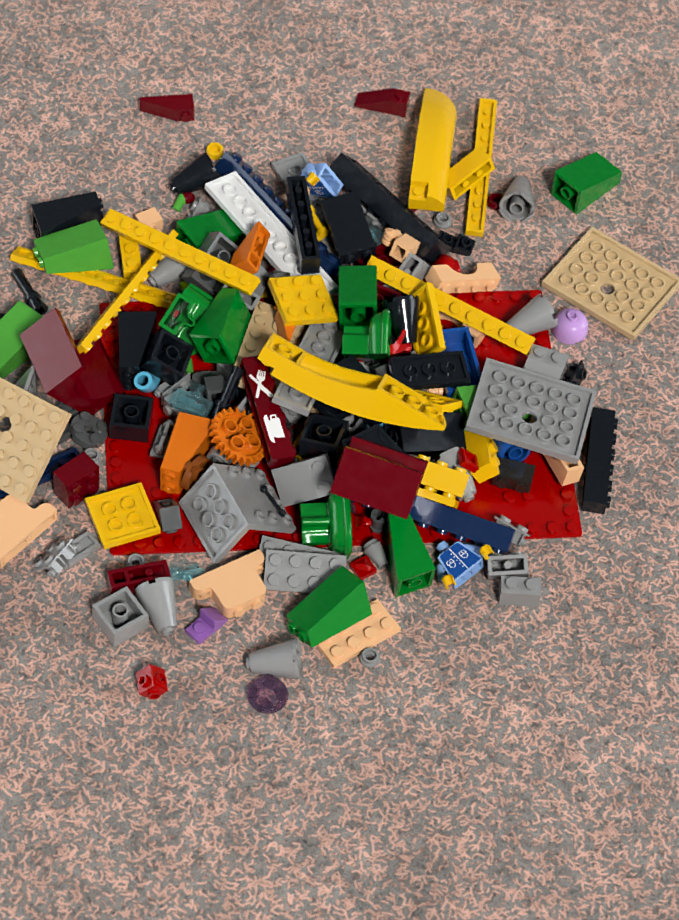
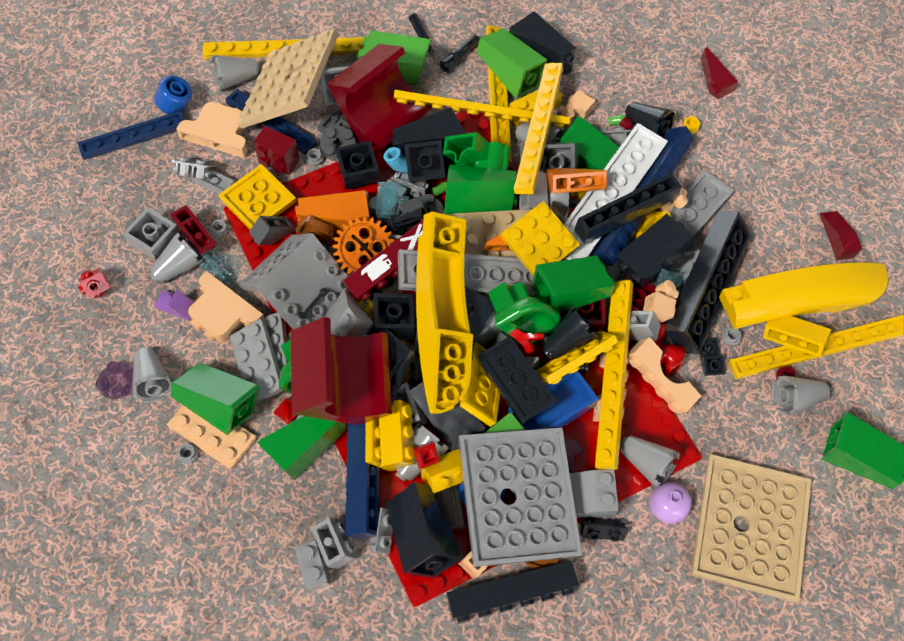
camera: 70 degrees right, 10 degrees up
(321, 180) = (698, 208): light blue torso -> none
(460, 562) = (318, 493): torso -> none
(526, 493) = (422, 532): none -> black slope

